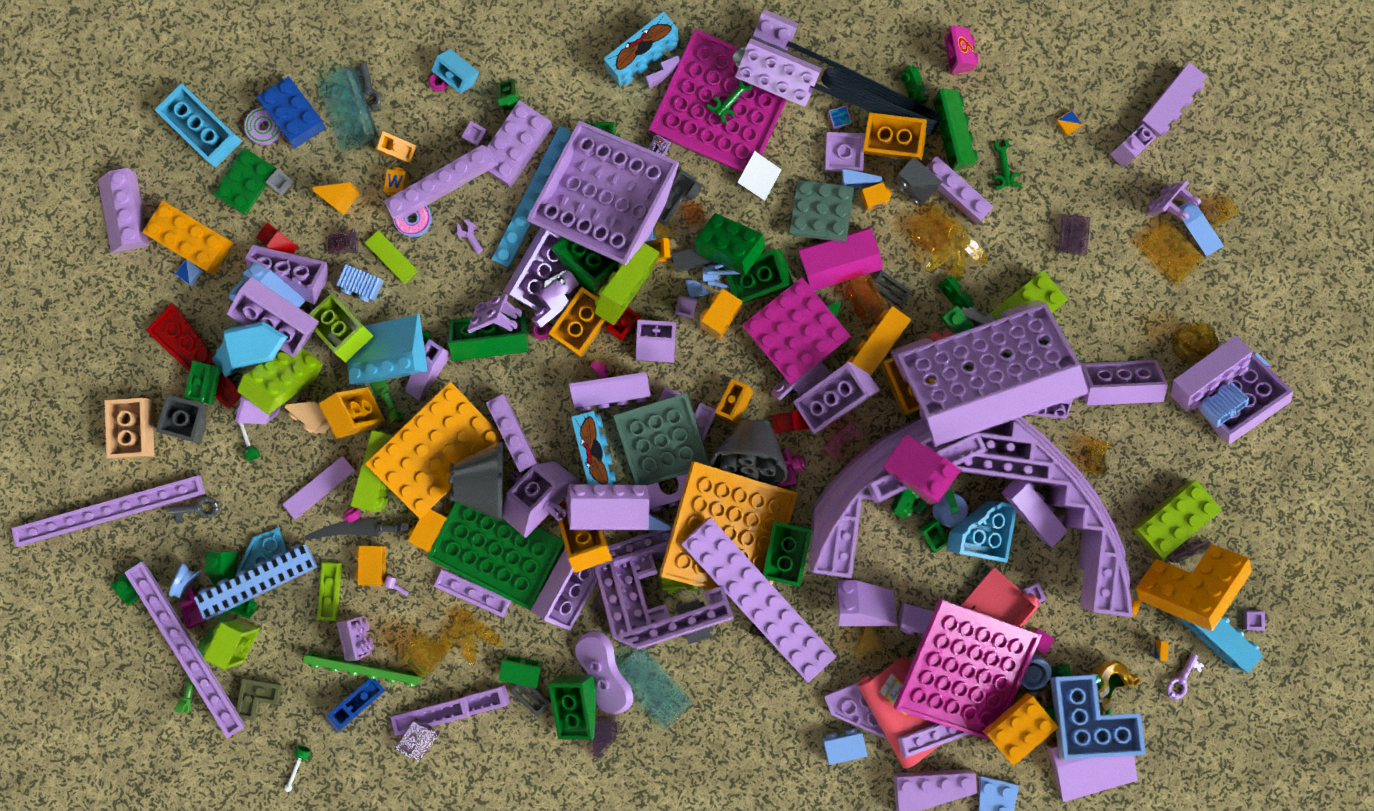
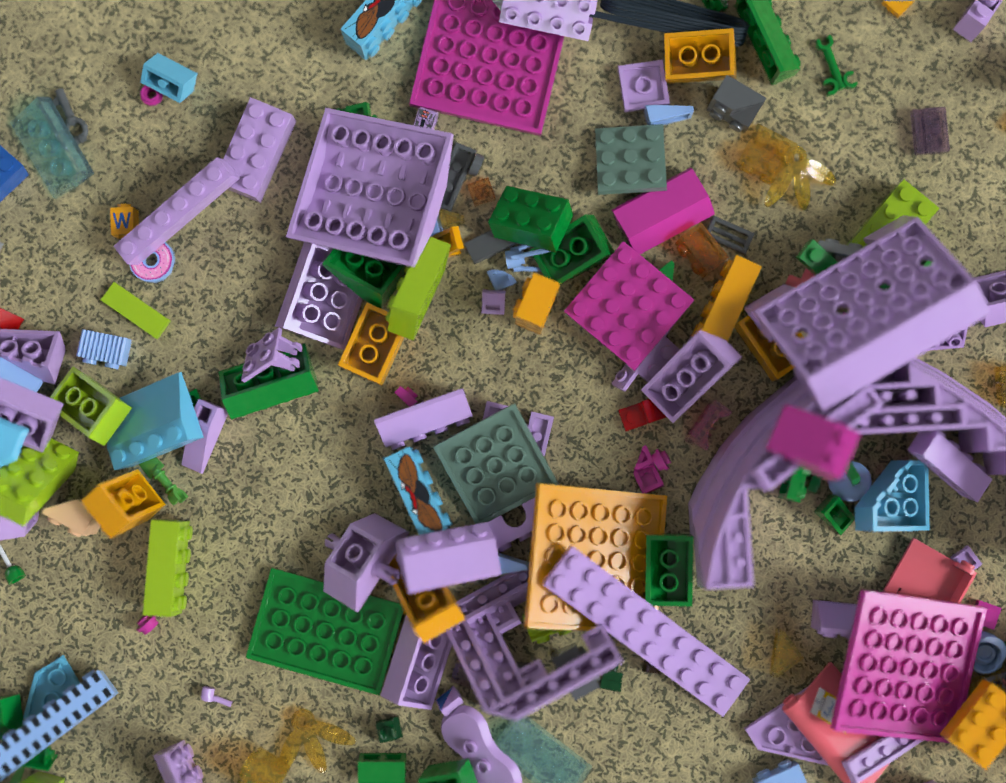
camera: 10 degrees left, 0 degrees up
(319, 487) = (102, 598): lavender tile -> none
(329, 591) = (138, 719): lime tile -> none
(339, 196) = (59, 250): light orange slope -> none
(343, 242) = (76, 304): slope -> none
(359, 527) = (161, 635): dark grey sword -> none
(370, 565) = (181, 679): light orange brick -> none
(395, 147) = (115, 180): light orange slope -> none
(420, 453) = (229, 529): light orange plate -> none
(427, 530) = (239, 622): light orange brick -> none
(470, 236) = (223, 267): lavender bar -> none
(471, 592) = (306, 687): lavender tile -> none
(474, 134) = (205, 147): lavender plate -> none
(478, 481) = (289, 556): dark grey cone -> none
(507, 94) = (236, 93): green slope -> none
(512, 433) = (318, 490): lavender brick -> none
(519, 226) = (279, 245): medium azure plate -> none
(532, 639) = (389, 729): none -> dark green piece
(545, 335) = (322, 359): dark pink plate -> none
(554, 296) = (336, 320): lavender plate -> none
(586, 626) = (449, 701): none -> lavender tile
(624, 324) = (425, 336): red slope -> none
(655, 341) = (466, 349): lavender slope -> none
(667, 69) = (417, 26): lavender slope -> none
(722, 110) = (491, 64): green bar -> none
(722, 633) = (611, 679): none -> dark green piece
(734, 402) = (572, 403): light orange brick -> none
(752, 453) = (605, 459): dark grey cone -> none
(759, 176) = (549, 132): white sticker -> none
(839, 117) = (630, 46): tile -> none
(864, 604) = (771, 612): lavender slope -> none
(875, 196) = (690, 130): light orange brick -> none
(950, 288) = (799, 222): green hinge -> none
(959, 191) = (788, 107): lavender brick -> none

